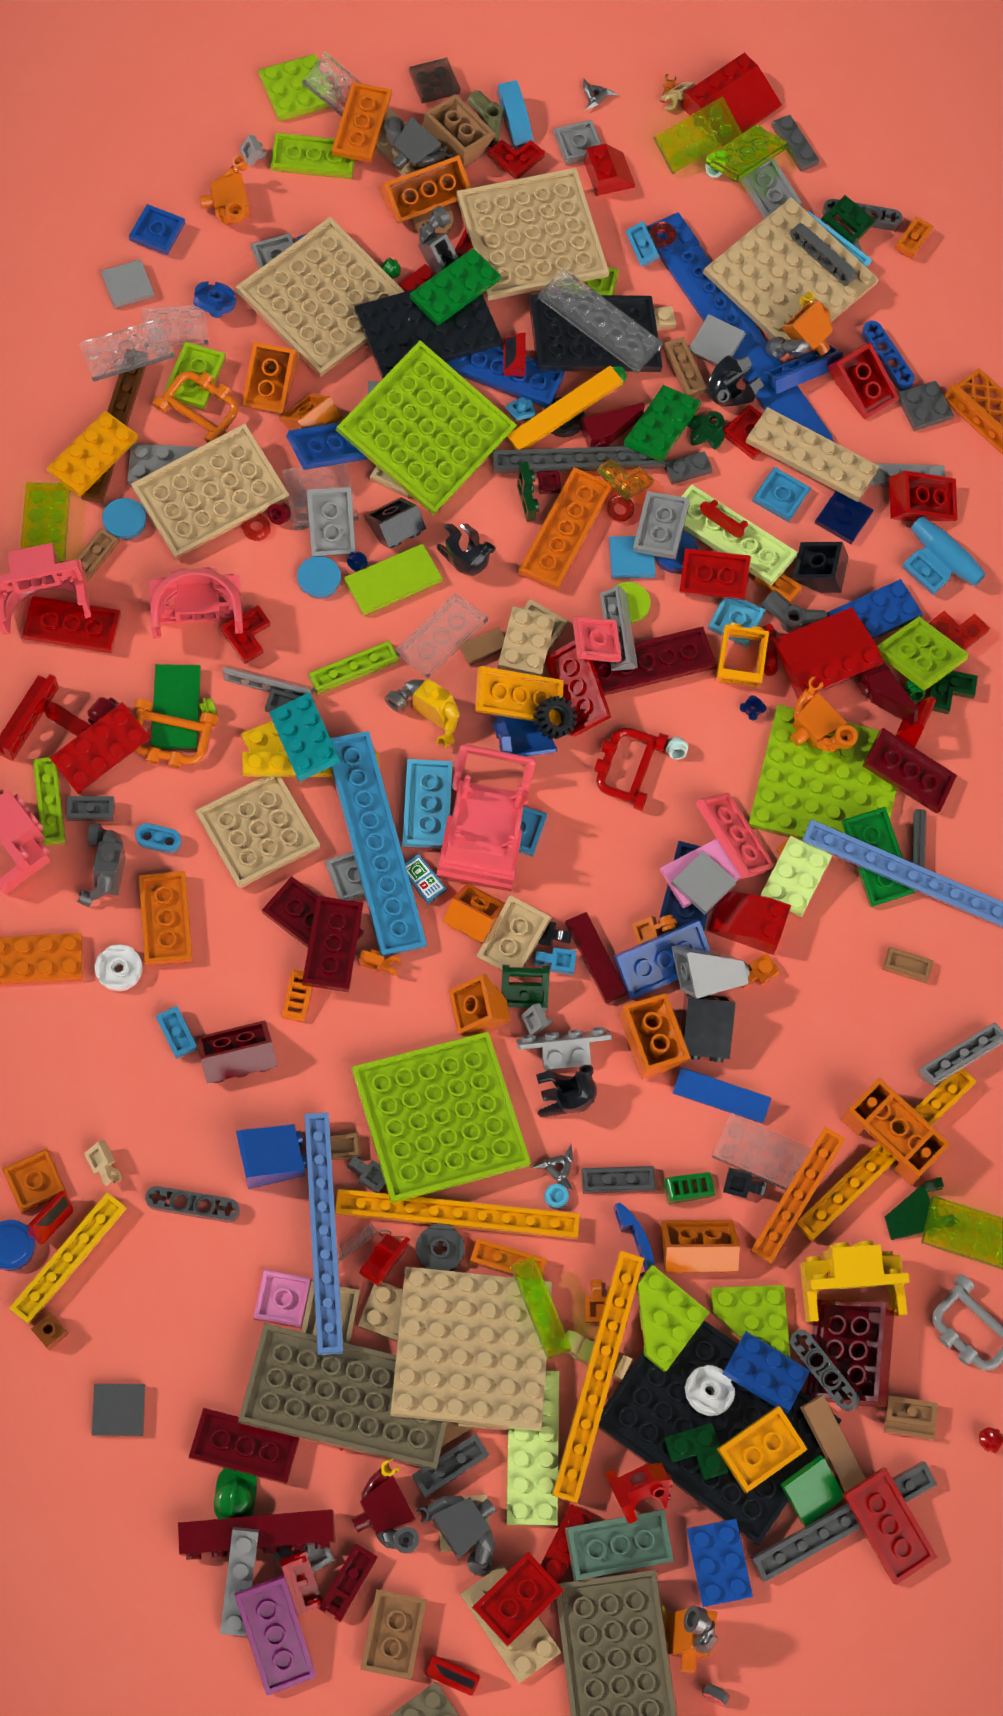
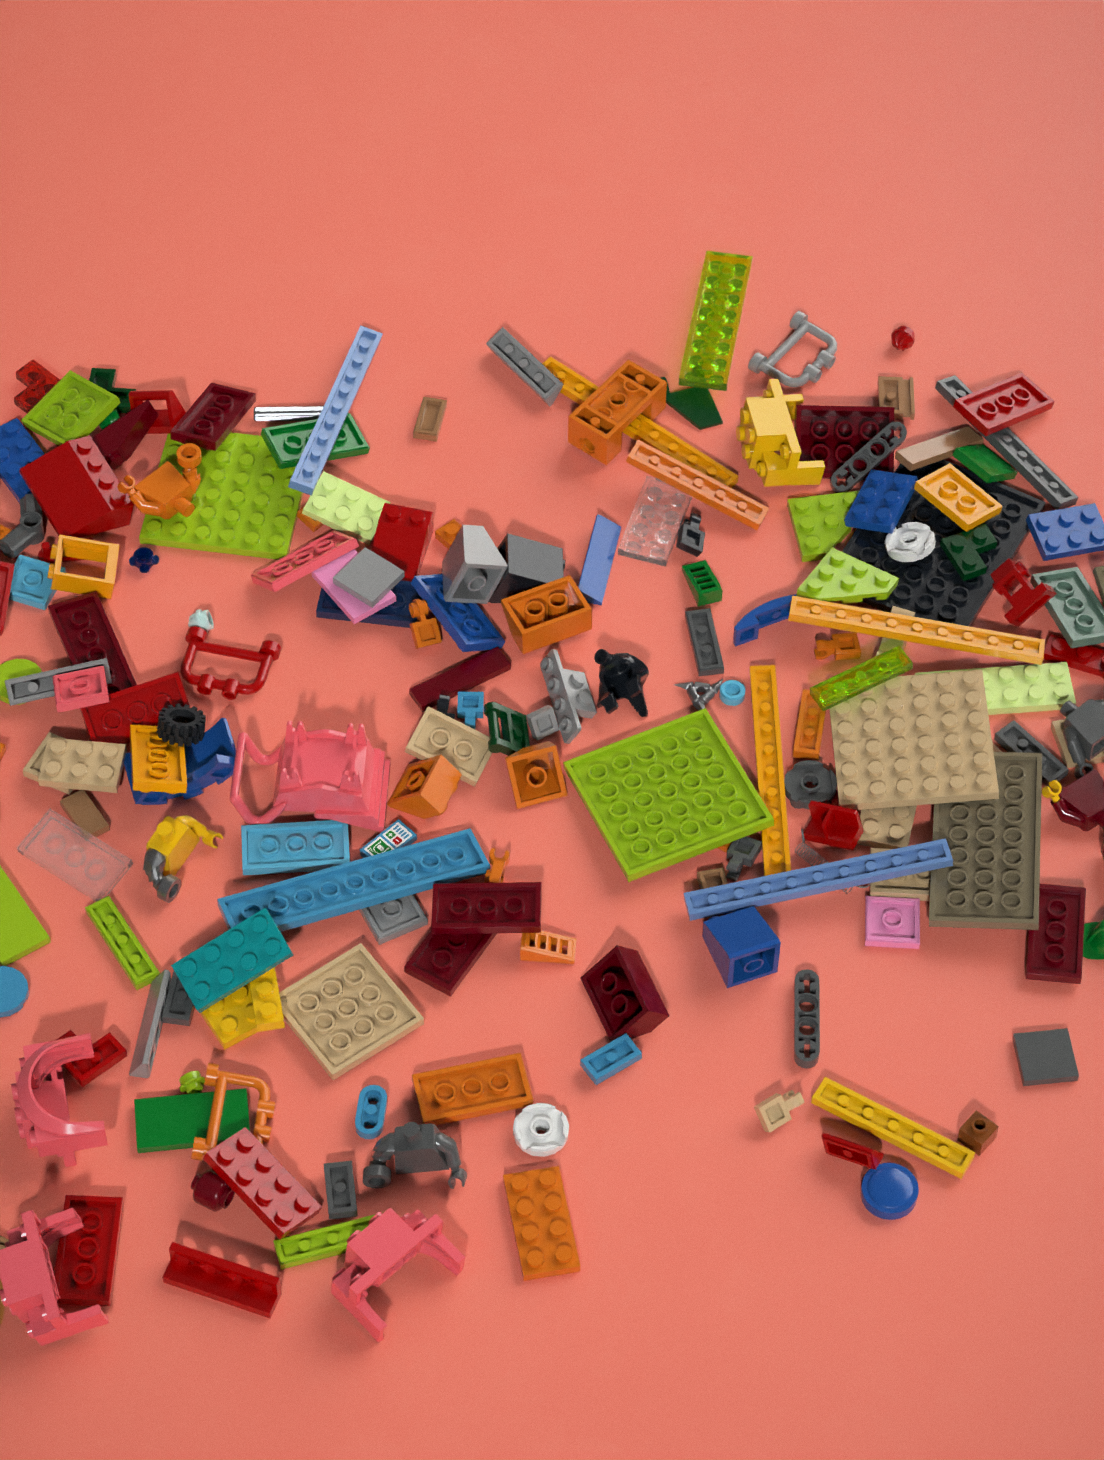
camera: 90 degrees left, 15 degrees down
(33, 1180) = (810, 1179): orange tile -> none
(65, 719) = (224, 1232): red piece -> none
(699, 1246) = (762, 565): orange slope -> none

